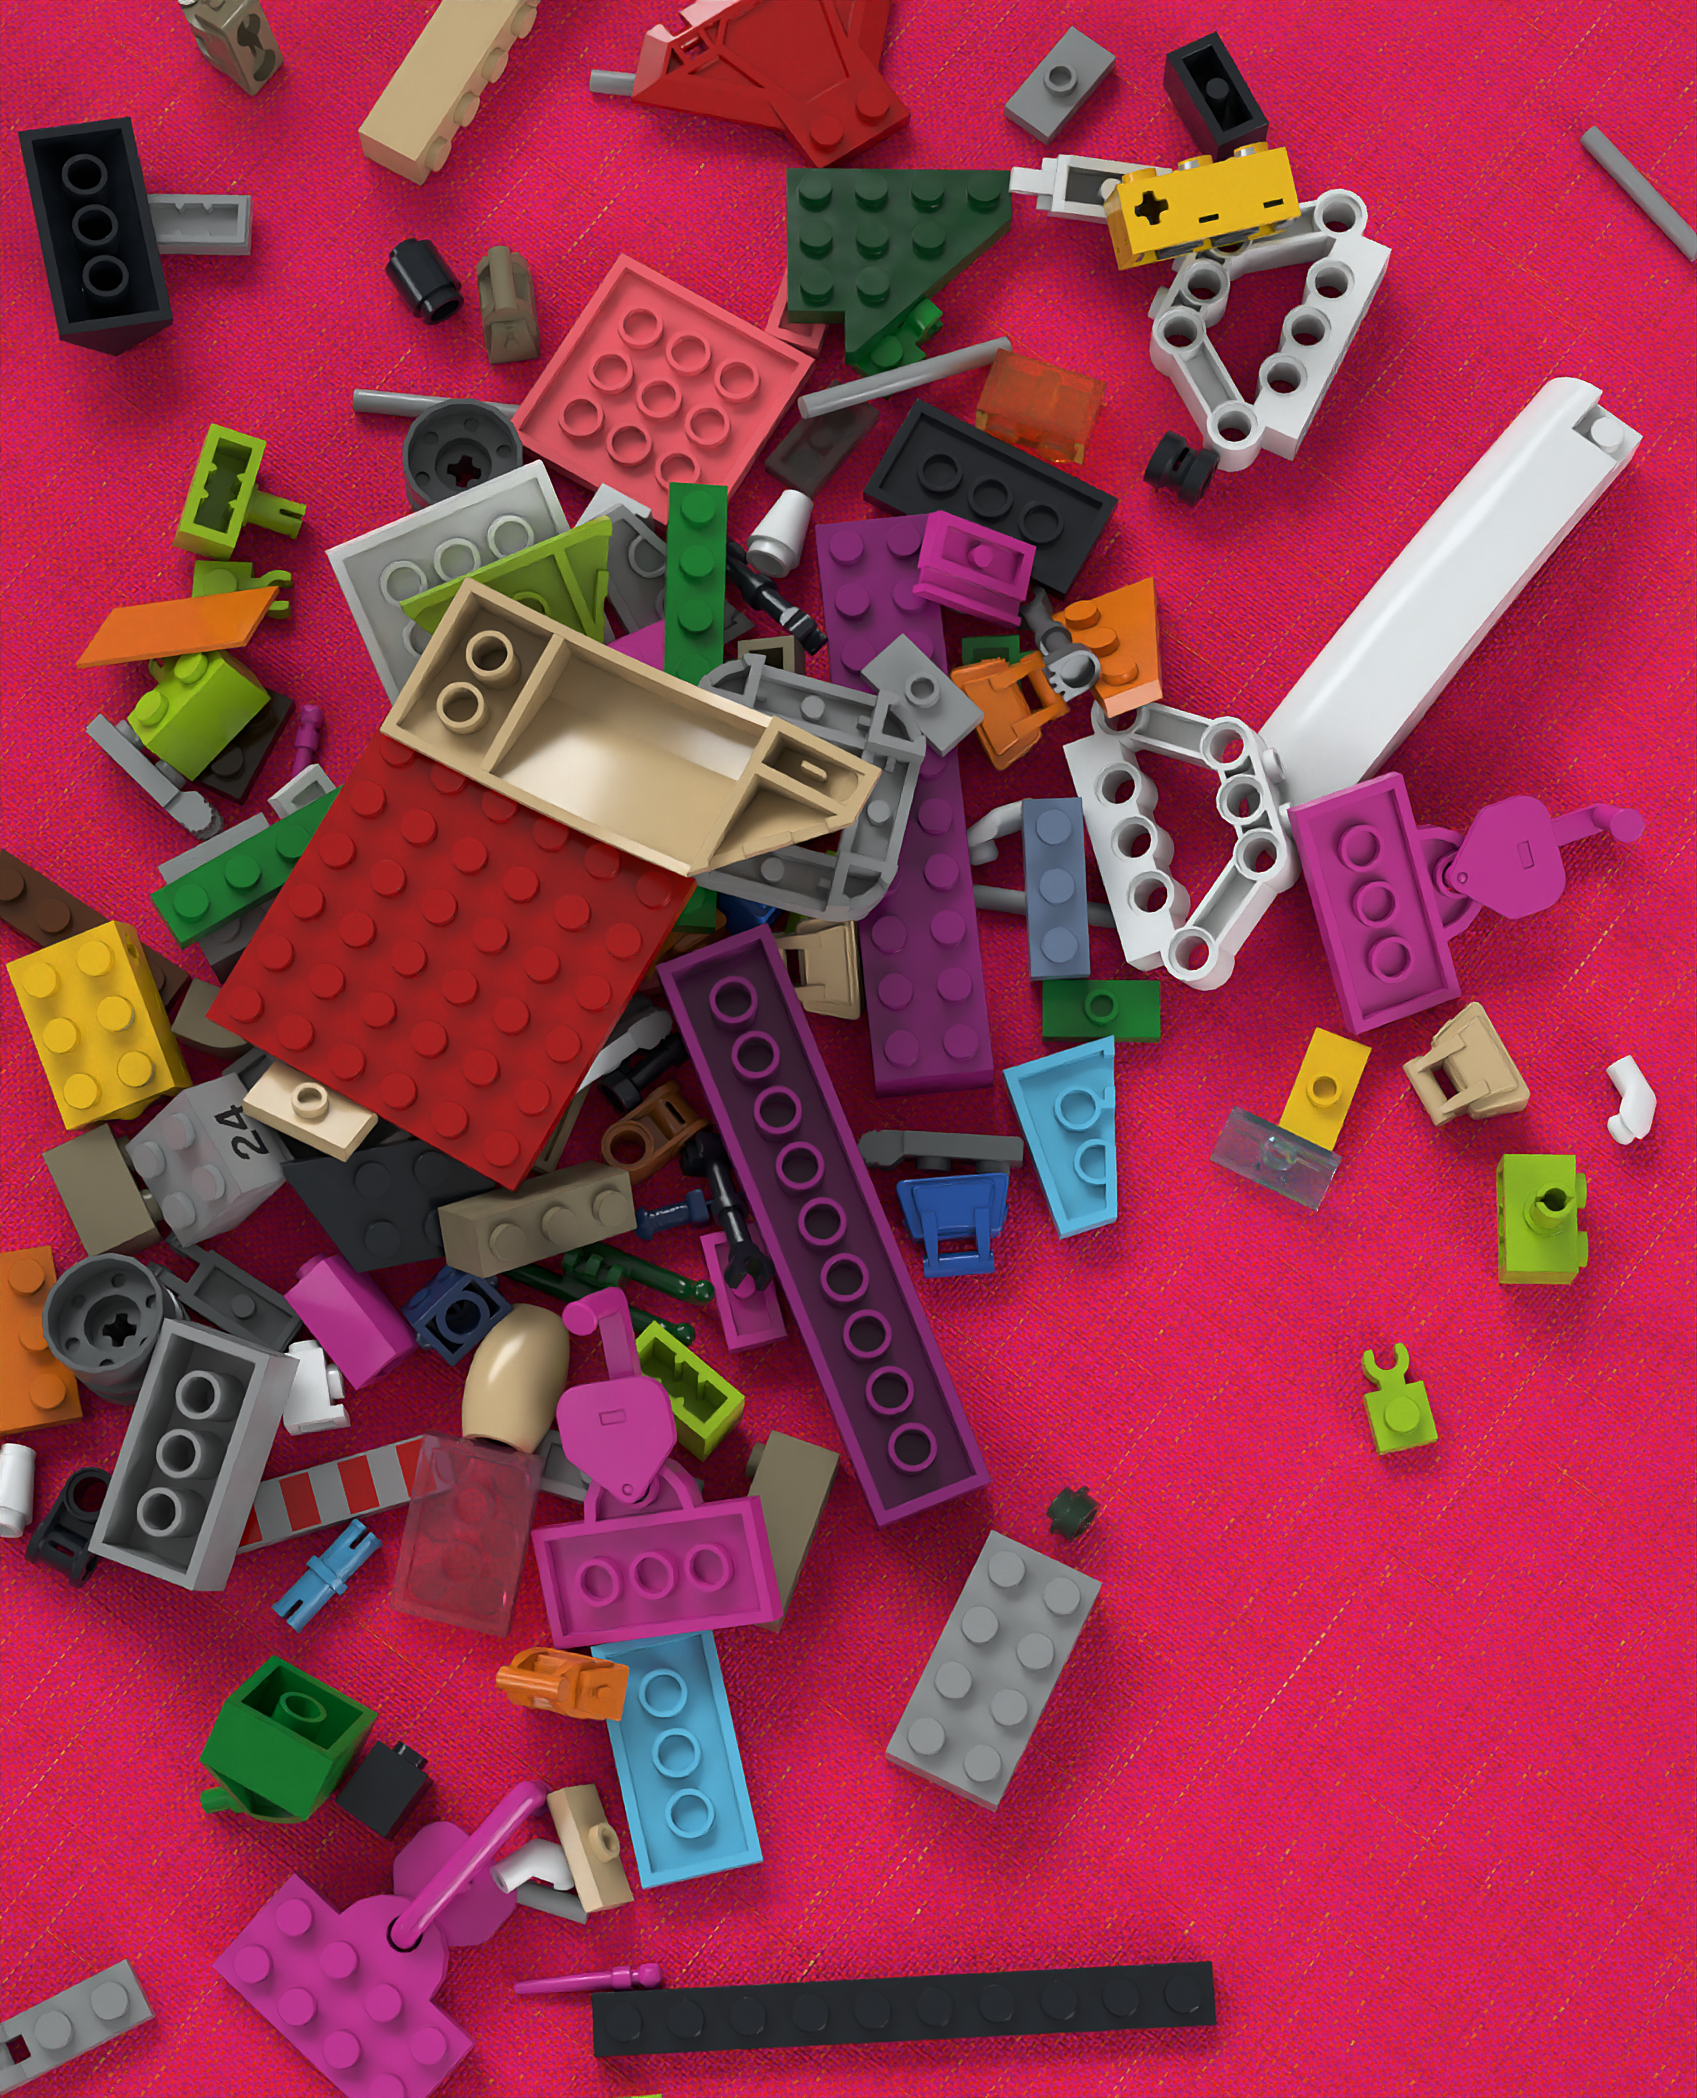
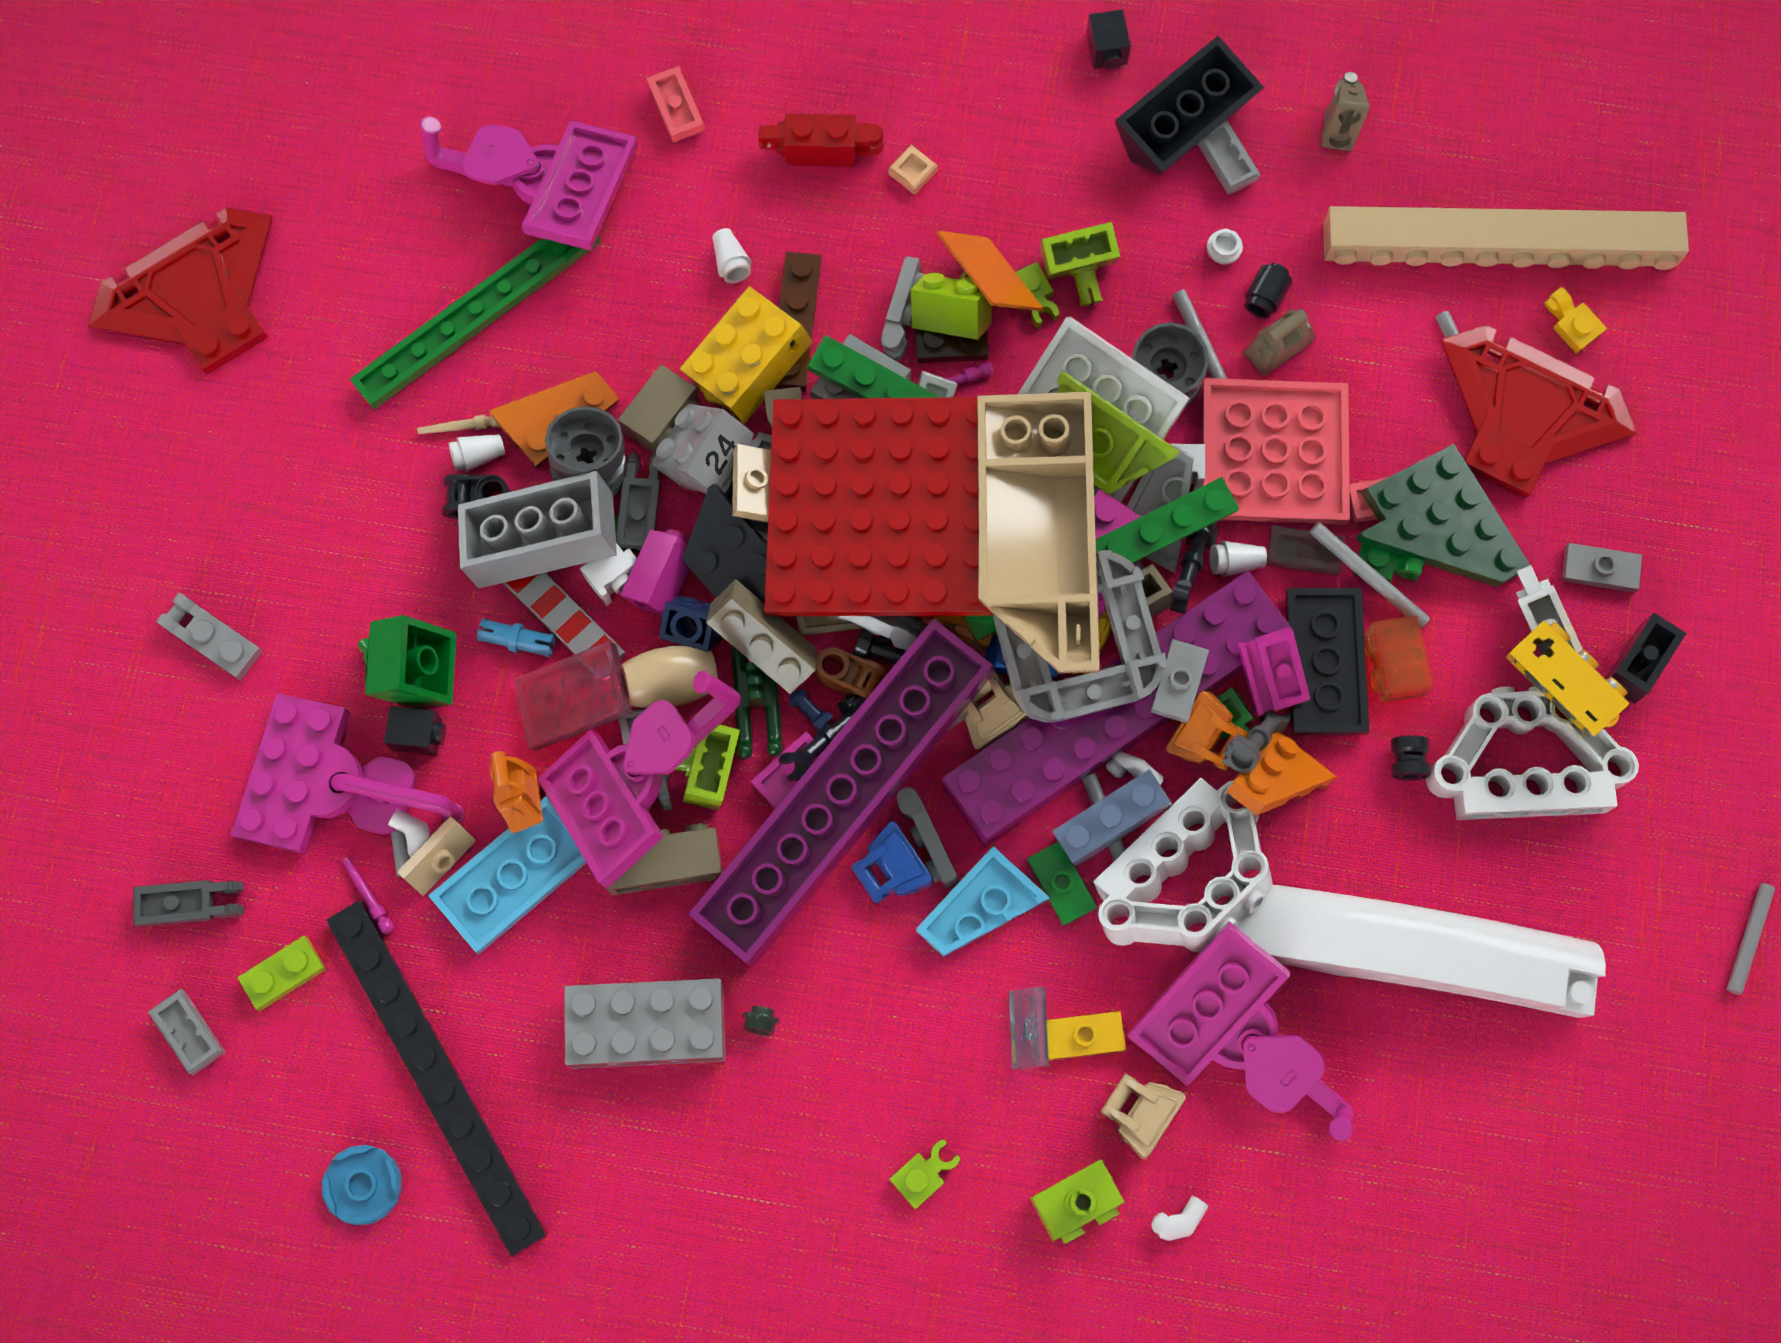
camera: 60 degrees right, 0 degrees up
(324, 302) = (1224, 246): none -> white plate

